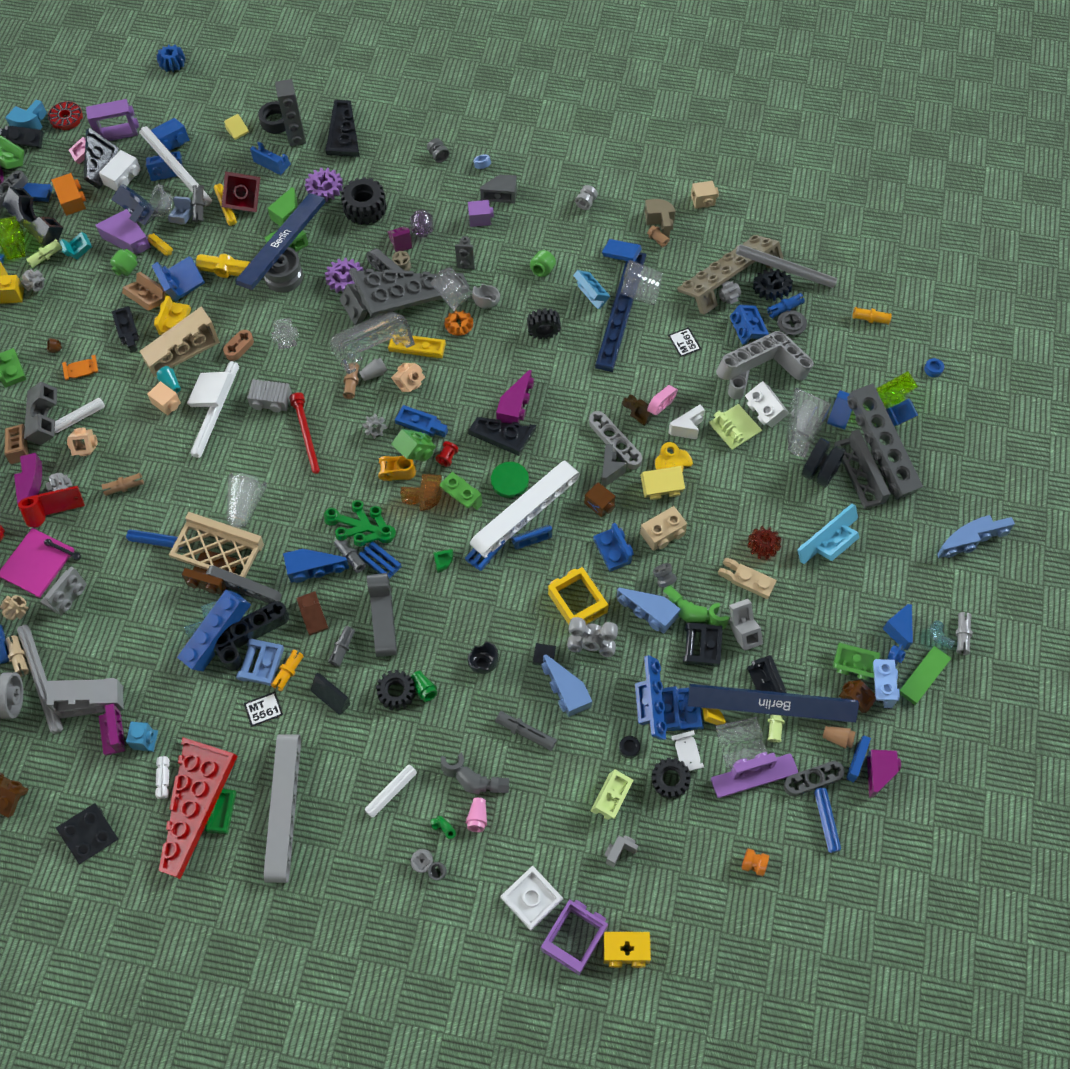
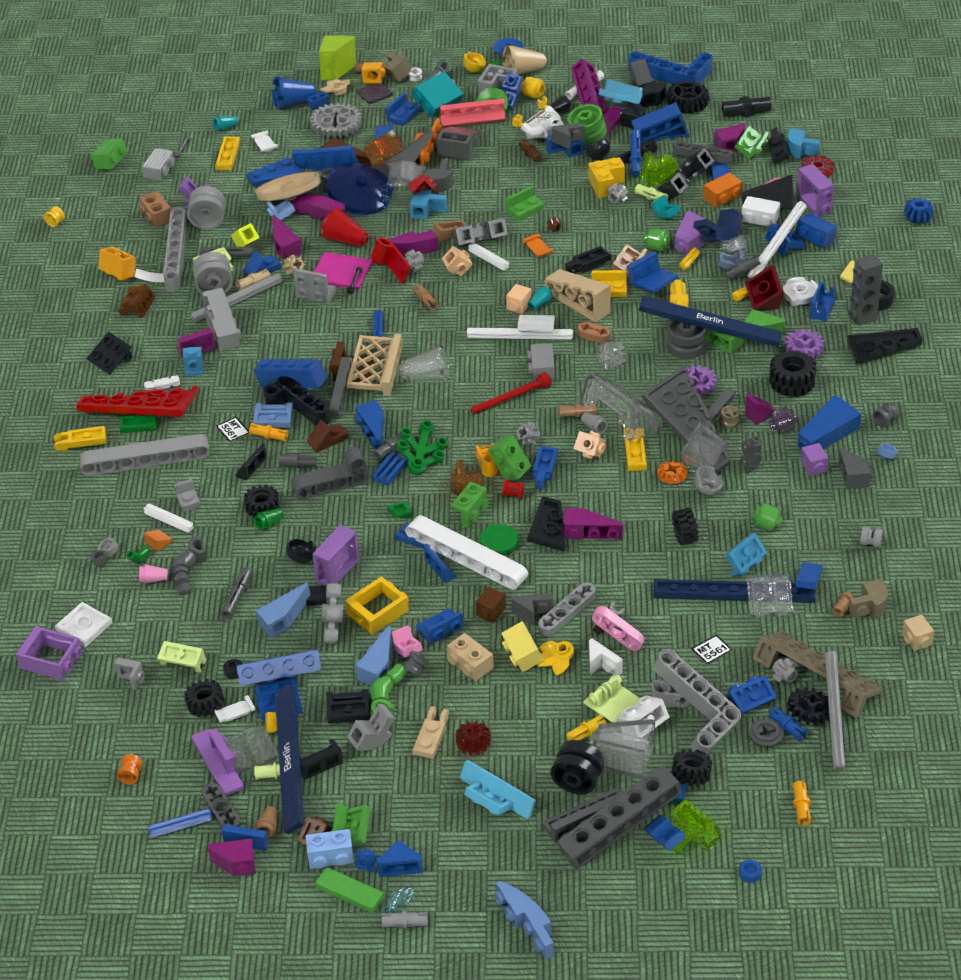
camera: 80 degrees right, 20 degrees down
(228, 877) = (80, 438): none -> yellow hinge
(247, 162) = (801, 297): none -> white plate
(363, 767) = (186, 495): none -> light grey bracket
(421, 805) = (157, 539): none -> orange slope
(438, 192) = (830, 424): none -> blue slope
(509, 623) = (331, 568): none -> medium lavender window
(636, 580) = (405, 642): none -> bright pink bracket
(636, 941) = (42, 689): yellow brick -> none
(766, 451) = (585, 729): none -> yellow axle
(827, 389) = (692, 767): none -> black tyre

